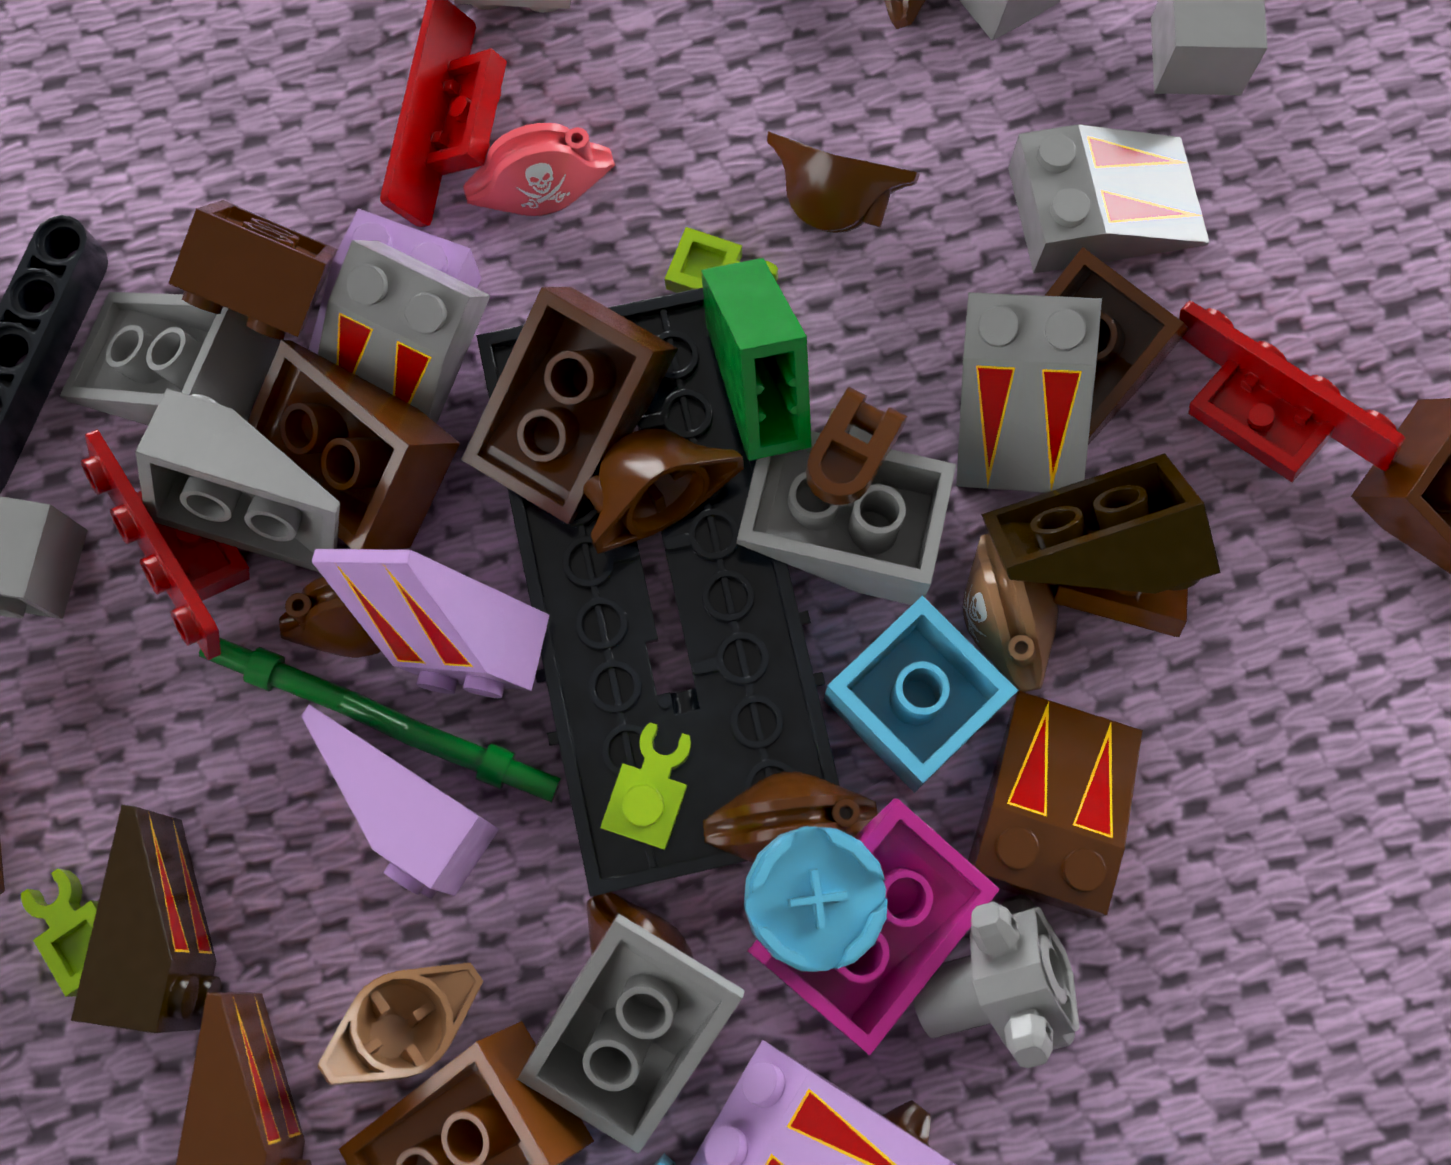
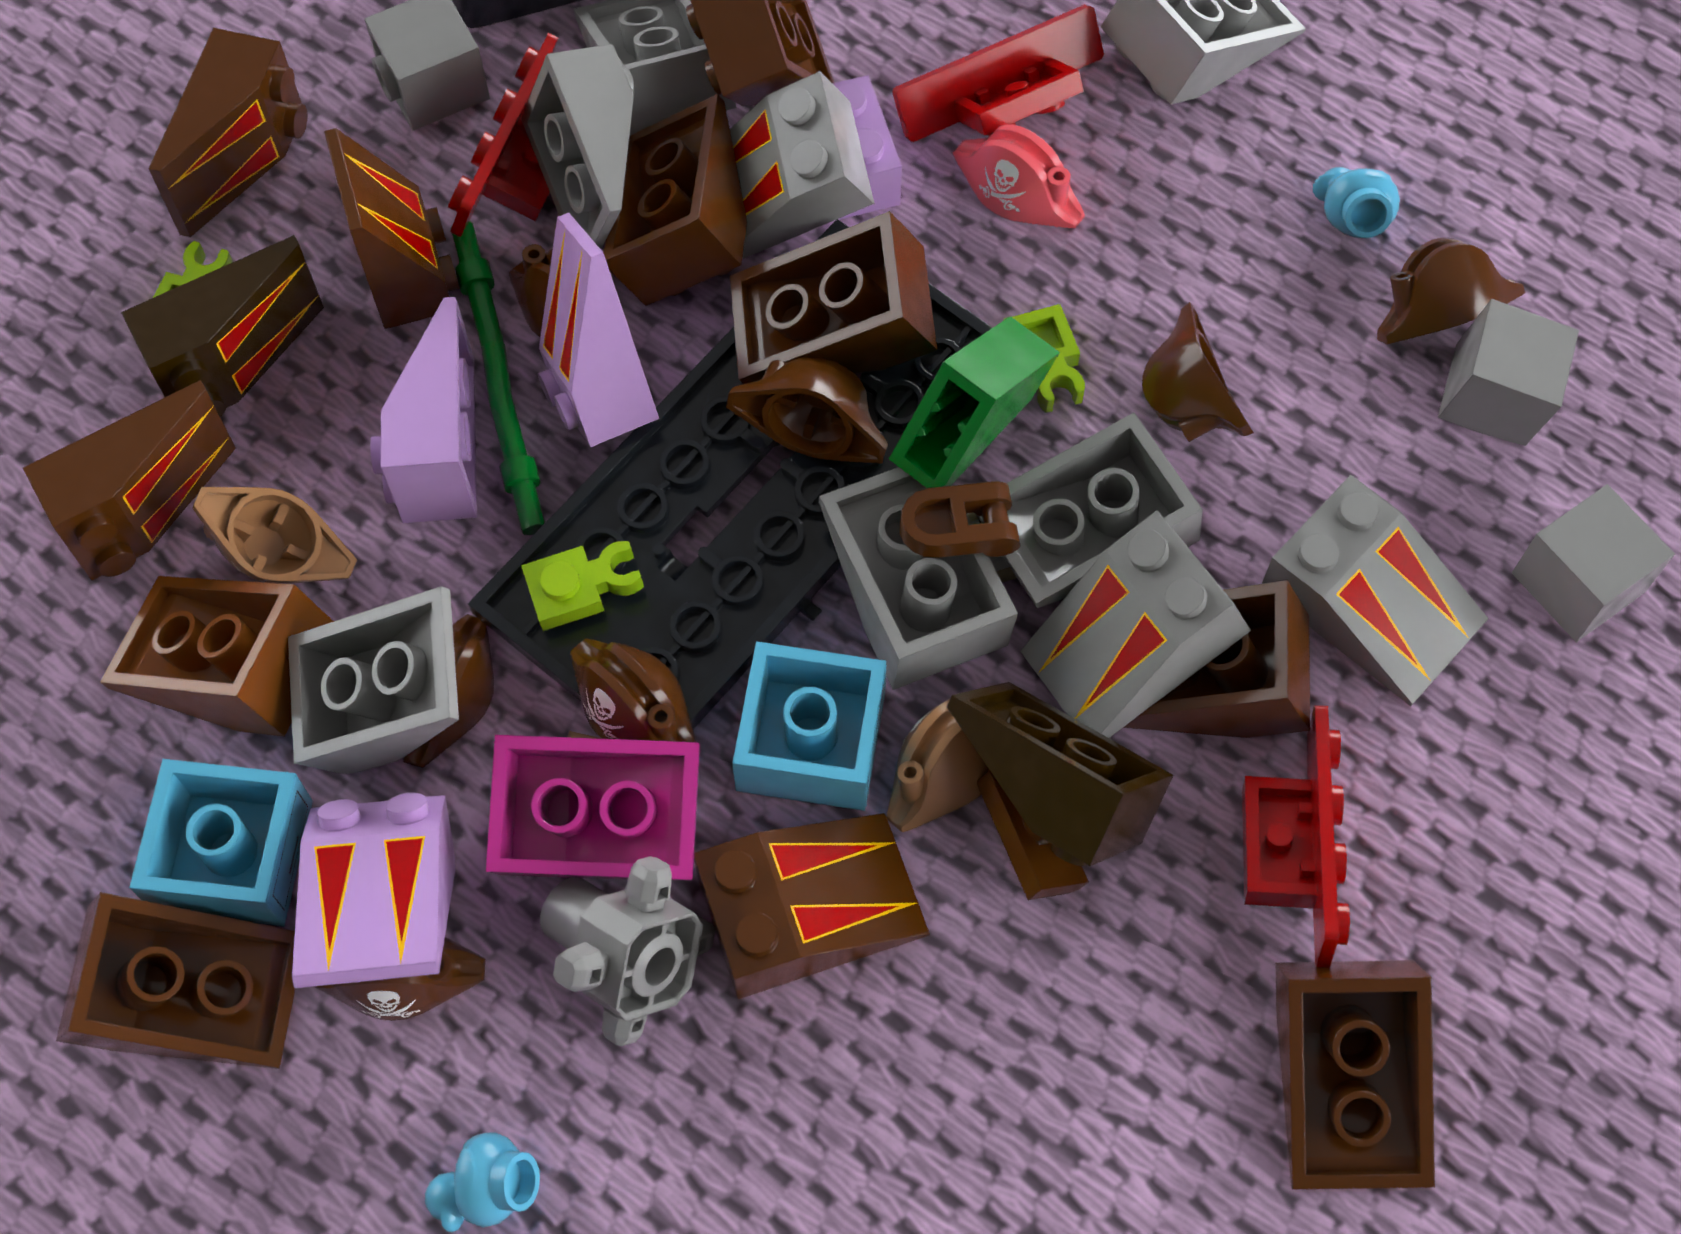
camera: 50 degrees right, 10 degrees down
(178, 711) = (391, 234): none -> reddish brown slope
(816, 898) = (571, 731): medium azure tile -> none
(903, 338) = (1088, 501): none -> light grey slope

